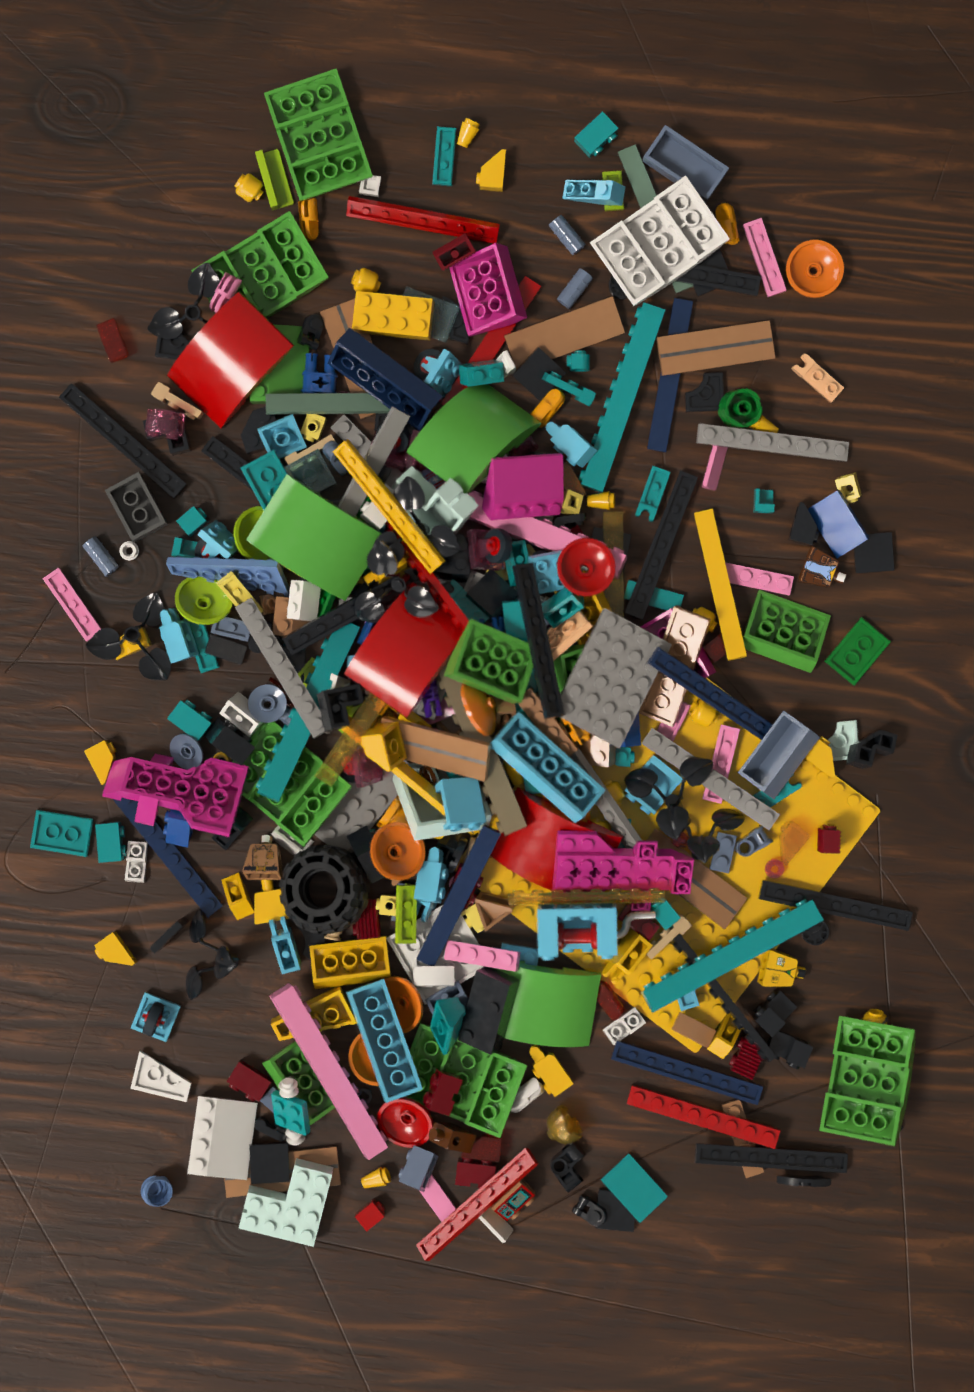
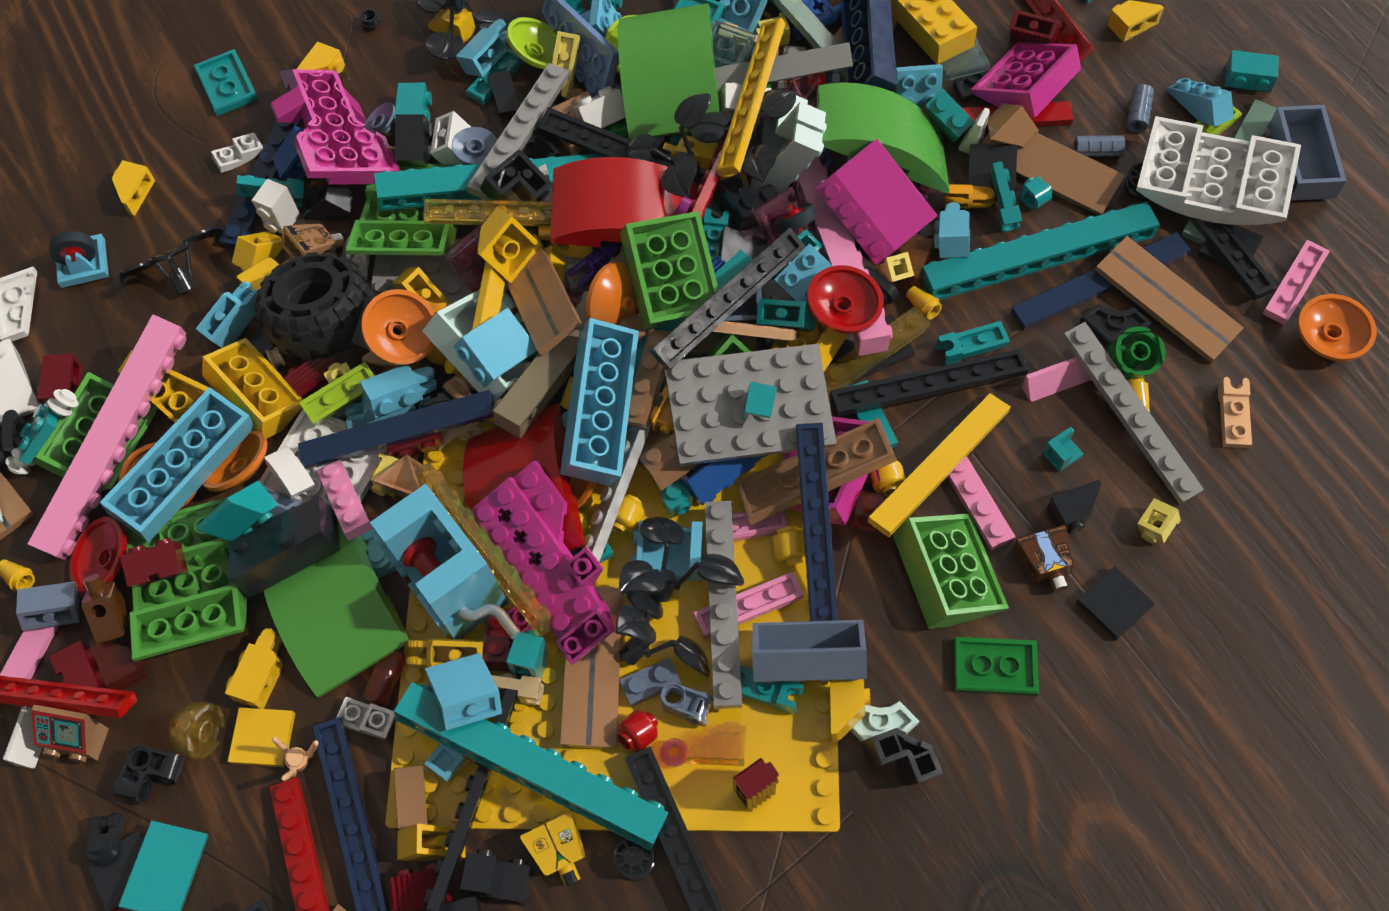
camera: 60 degrees right, 25 degrees down
(76, 693) = (370, 19): none -> black plate
(110, 842) = (241, 117): teal brick -> none
(169, 934) = (171, 205): black tile -> none
(204, 848) = (249, 185): none -> teal plate
(216, 866) = (275, 206): none -> white brick
(231, 628) = (524, 80): sand blue plate -> none
(359, 815) = (416, 281): none -> yellow slope
(444, 617) = (683, 205): none -> magenta tile
(461, 841) = (458, 387): none -> medium nougat plate
(521, 341) = (1011, 125): none -> medium nougat slope
(527, 1094) = (208, 663): white arm -> none
(591, 1091) = (254, 734): none -> yellow tile
(621, 1079) = (295, 758): none -> light nougat plant
(622, 677) = (759, 400): none -> teal panel
(666, 965) = (464, 691): none -> medium azure panel
(726, 218) = (1289, 231): light orange arm -> none
(748, 880) = (637, 731): none -> red head
(838, 524) = (1112, 538): tile -> none

